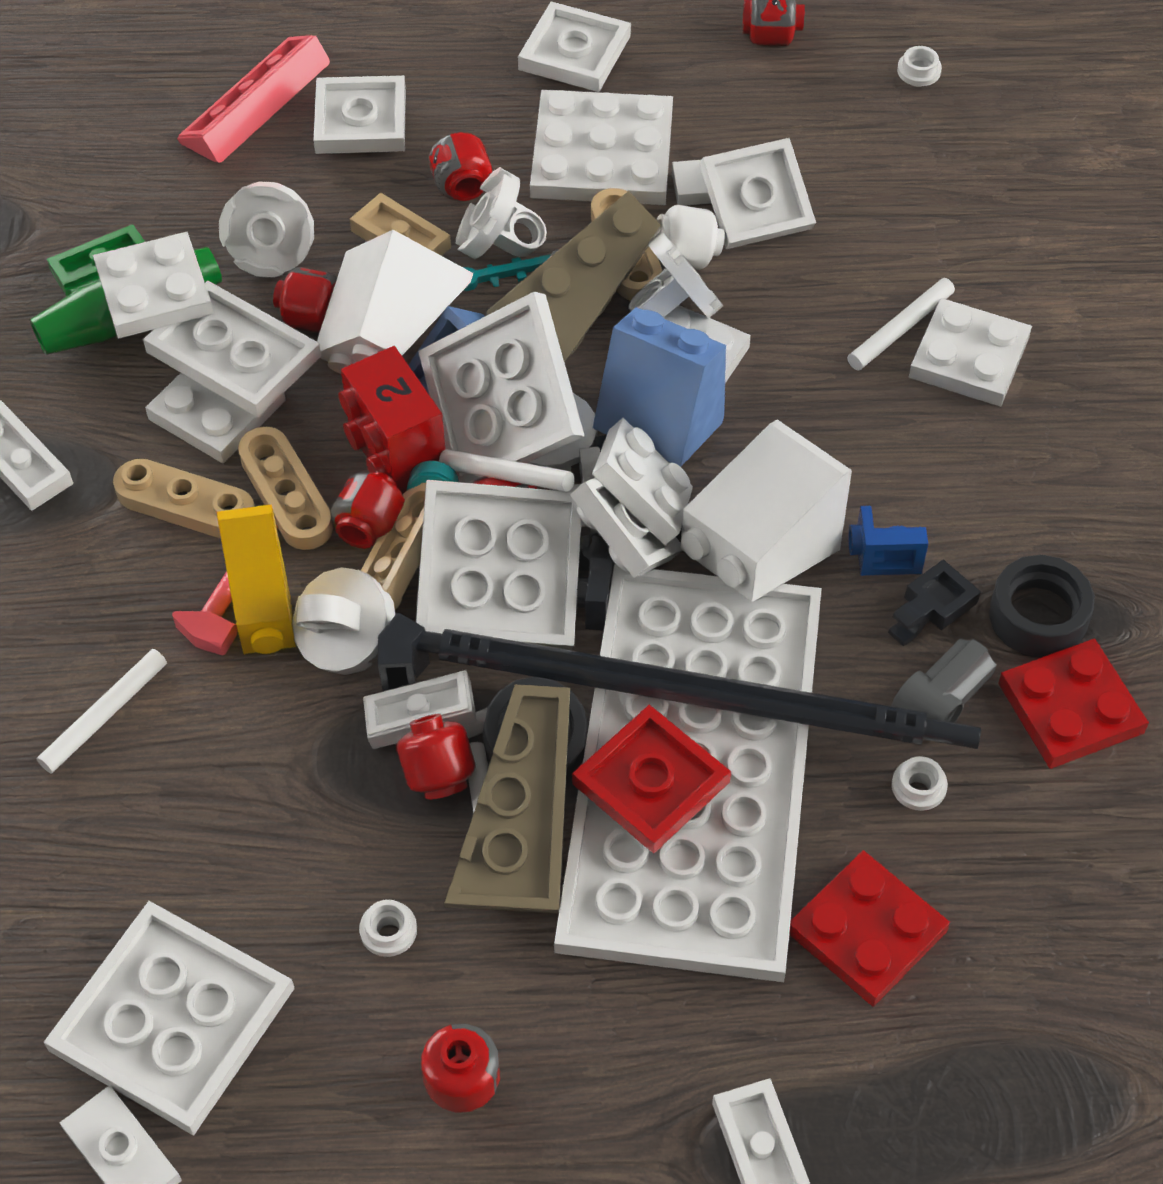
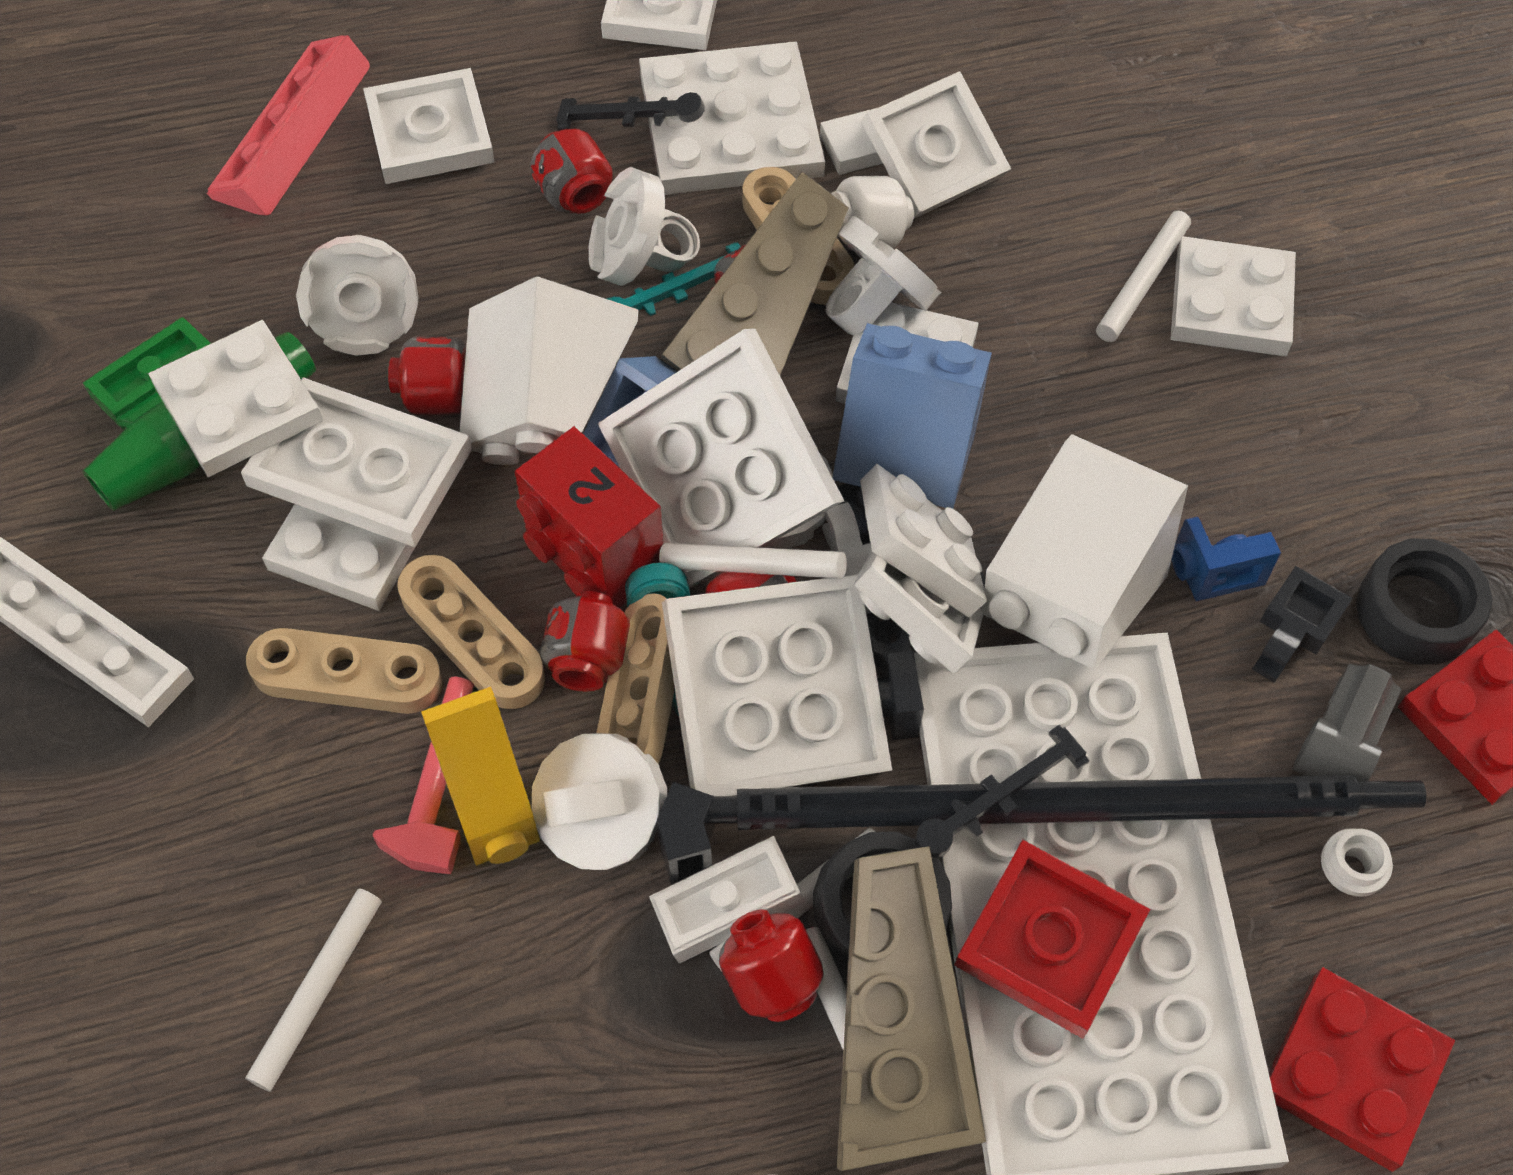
camera: 15 degrees left, 5 degrees up
(385, 214) = (505, 260): tan plate -> none
(564, 132) = (687, 107): none -> black piece
(584, 687) = (939, 833): none -> black piece

